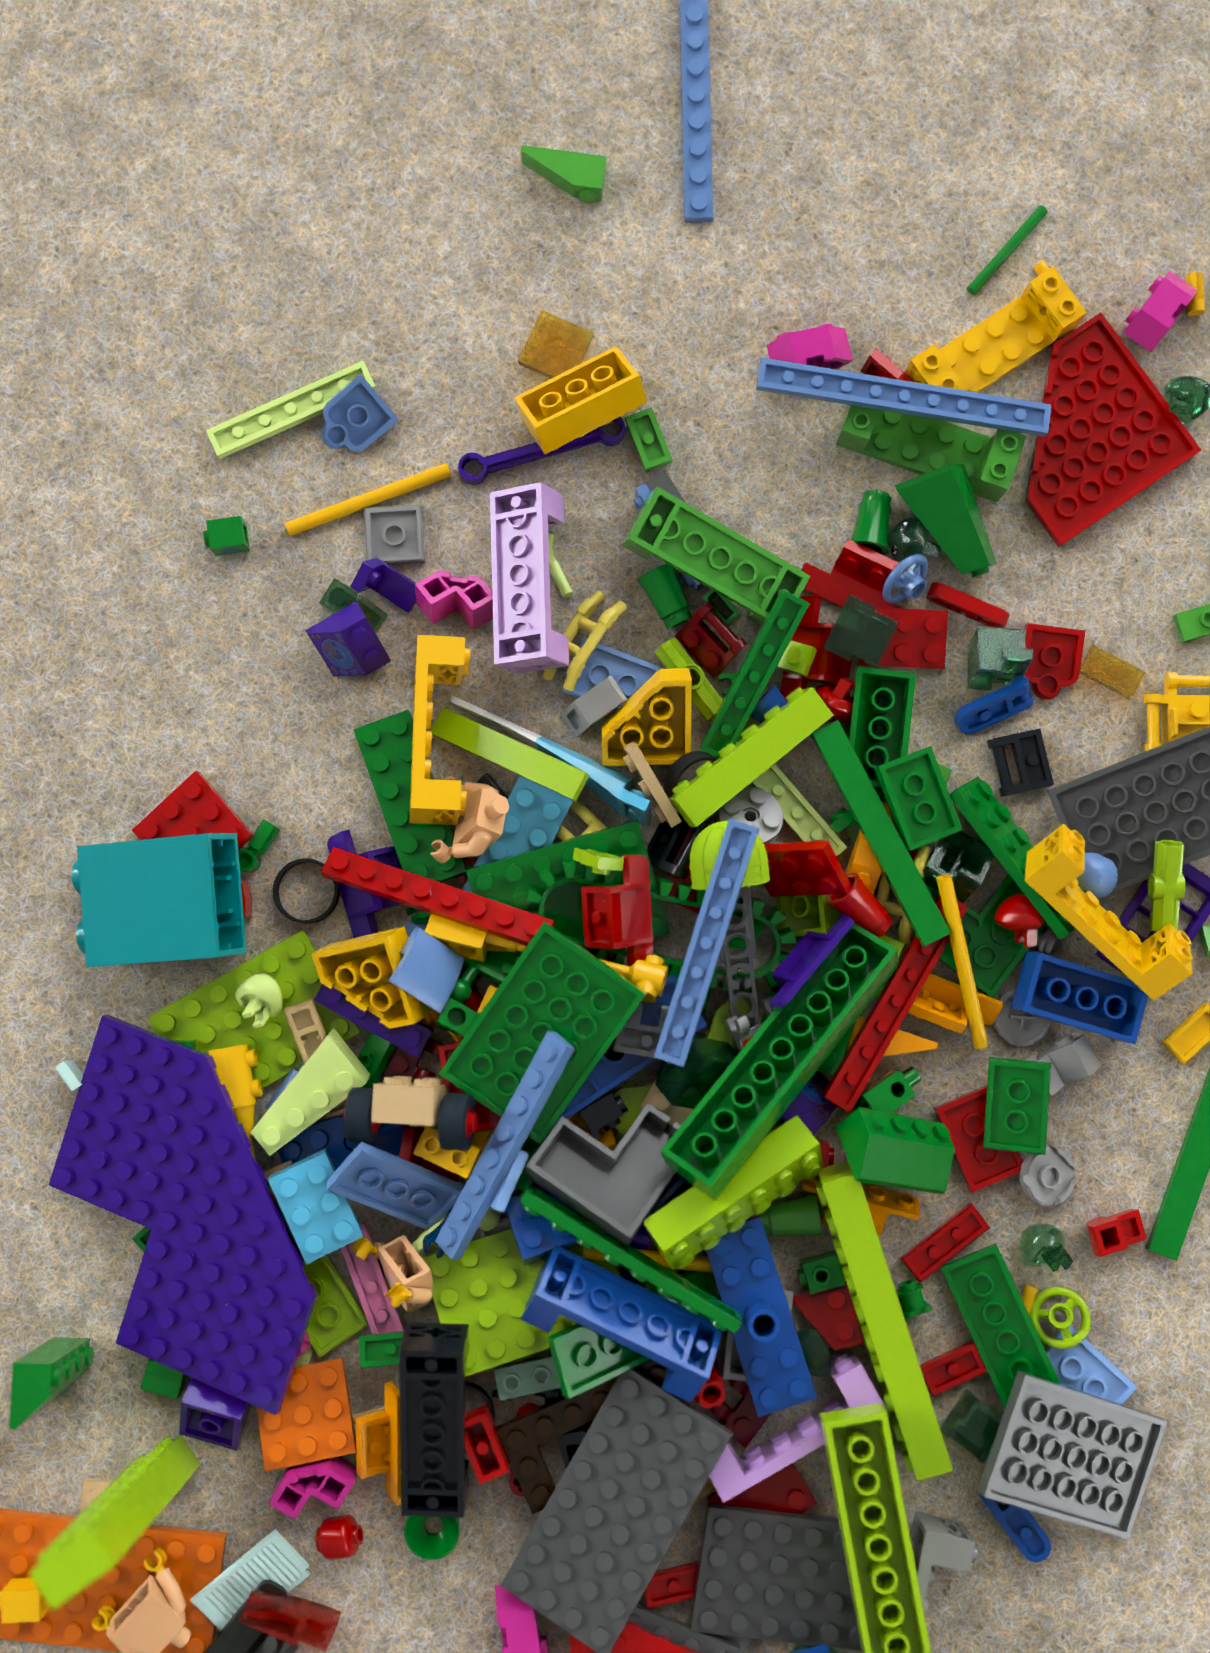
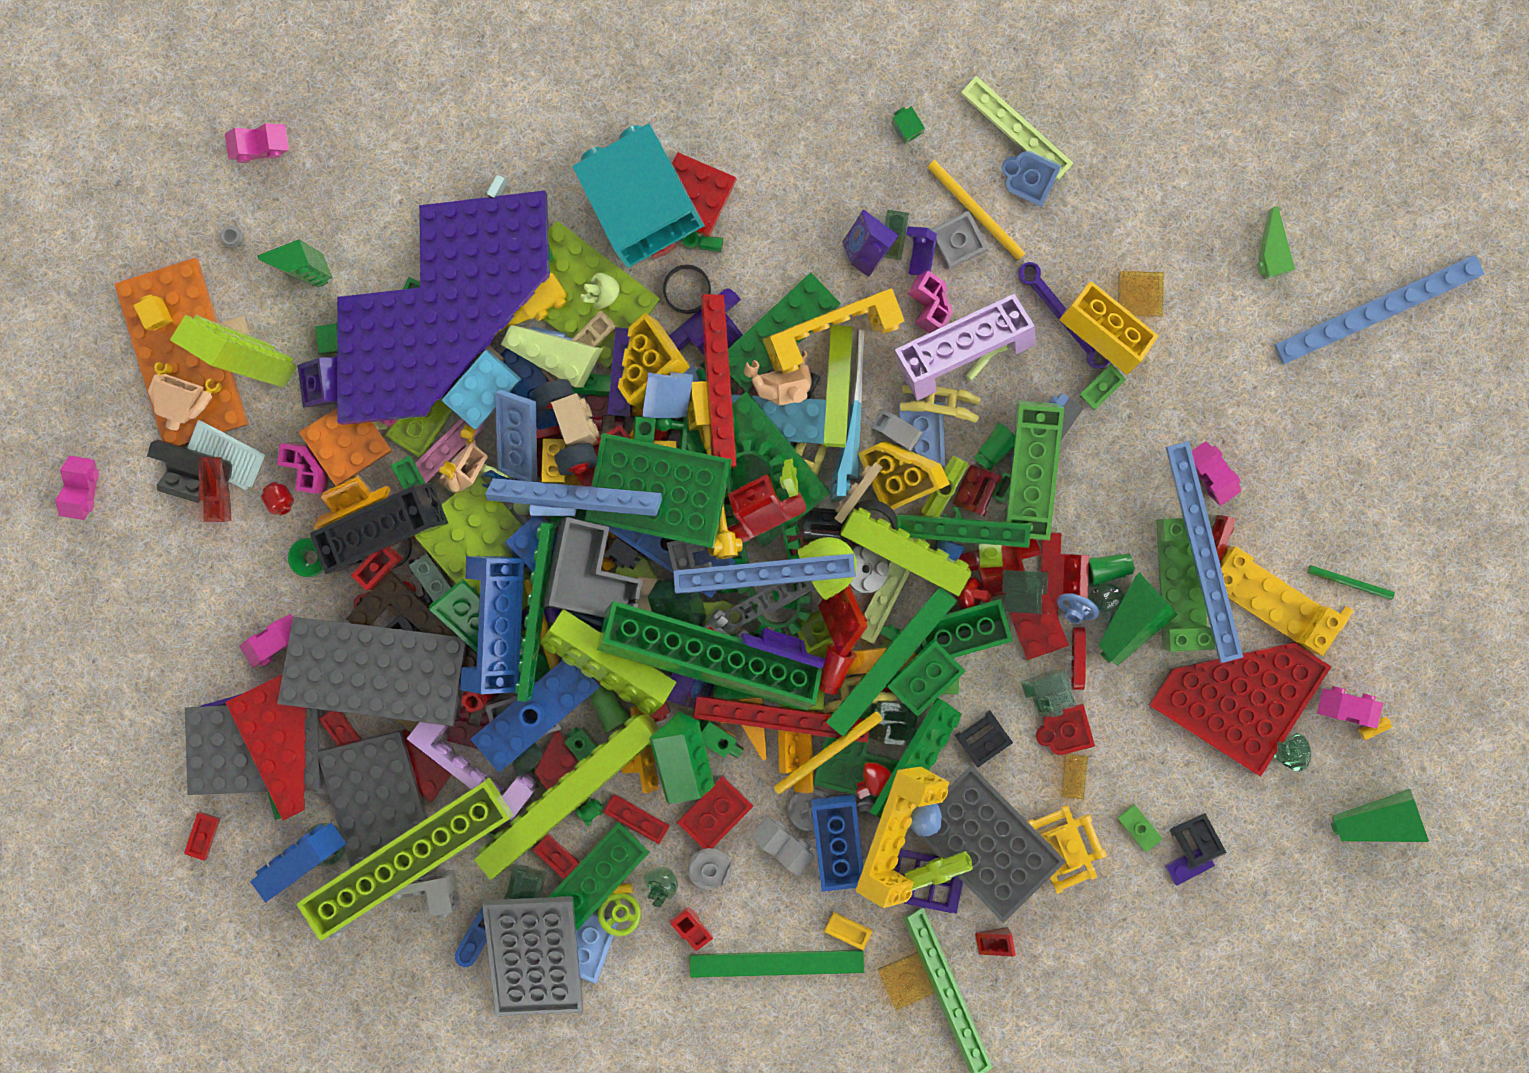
camera: 70 degrees right, 5 degrees up
(995, 706) = (1015, 705): blue plate -> none
(1017, 1105) = (747, 828): green tile -> none

